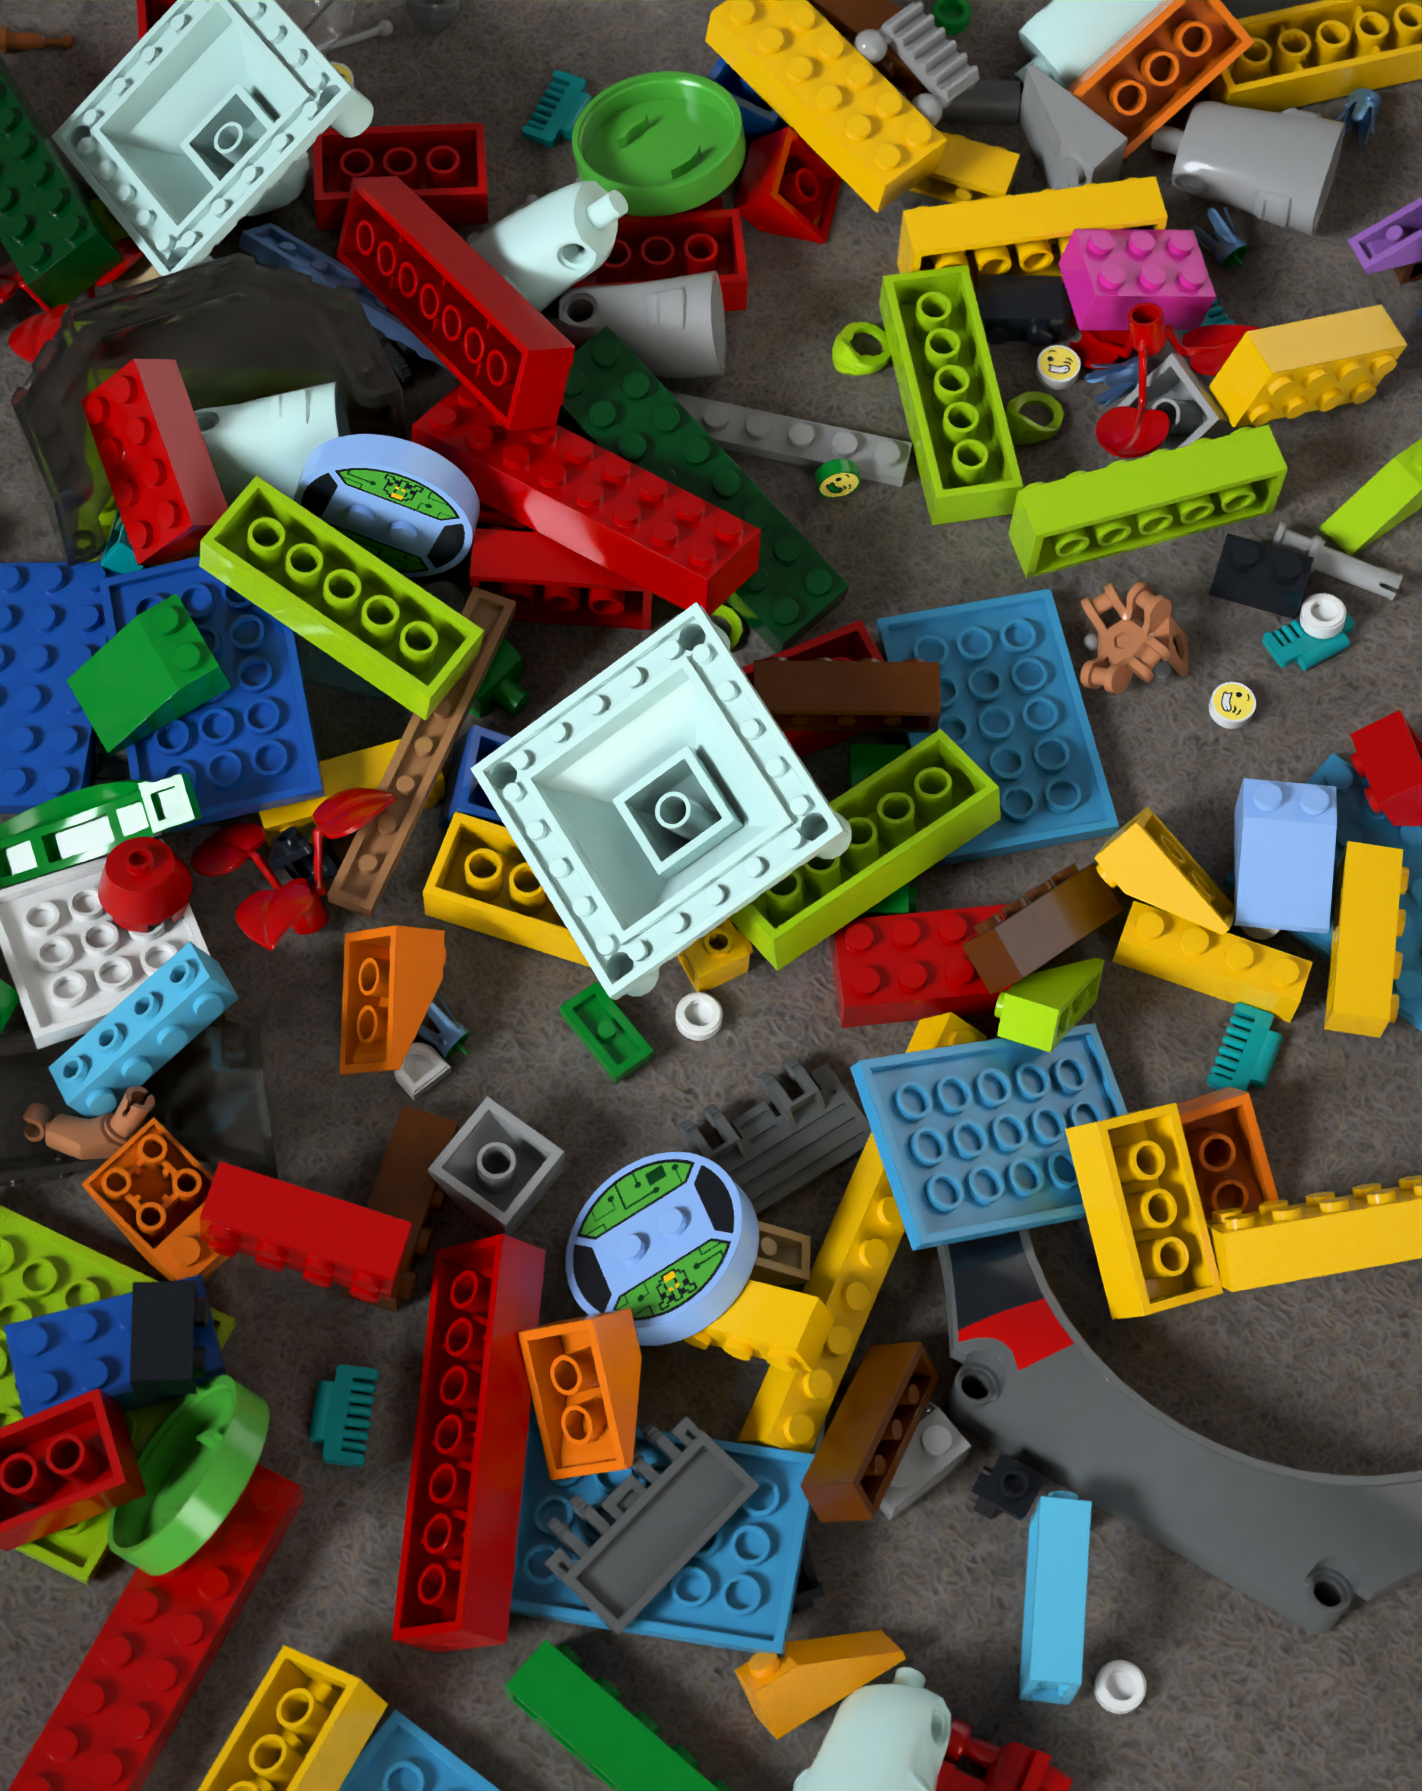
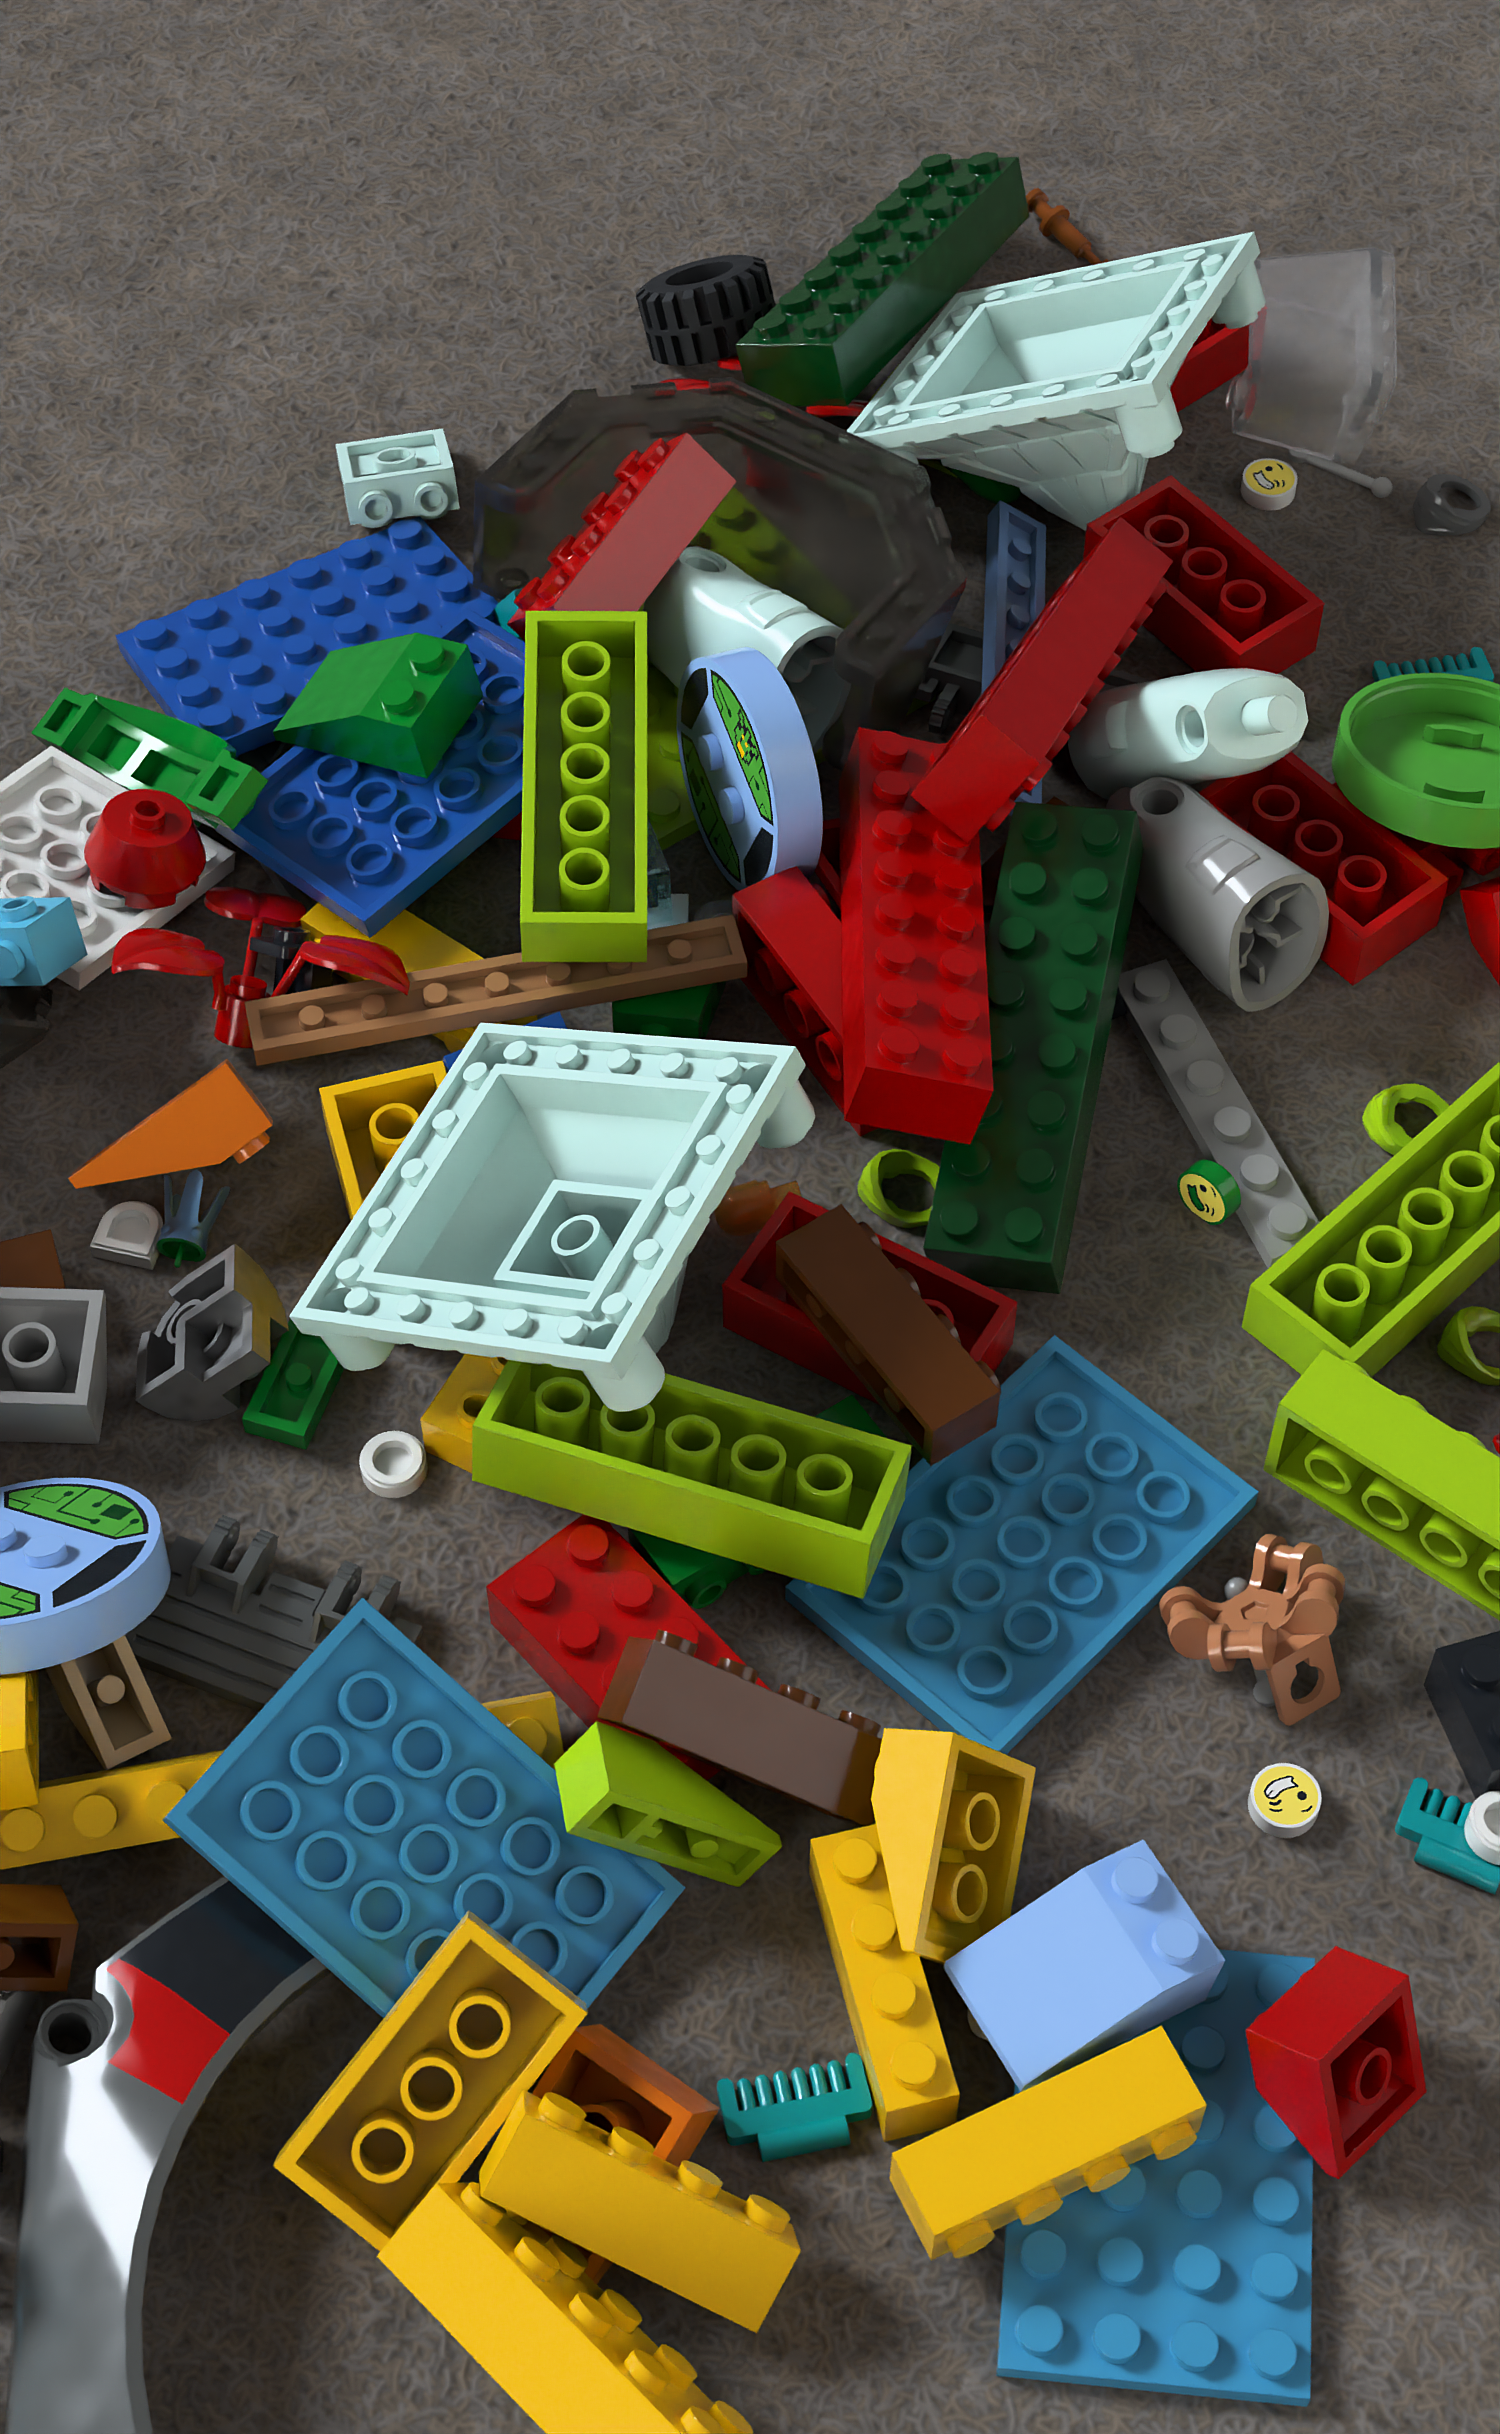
camera: 60 degrees right, 10 degrees down
(548, 1062) = (210, 1339): none -> flat silver brick
(1279, 1152) = (640, 2209): none -> yellow brick

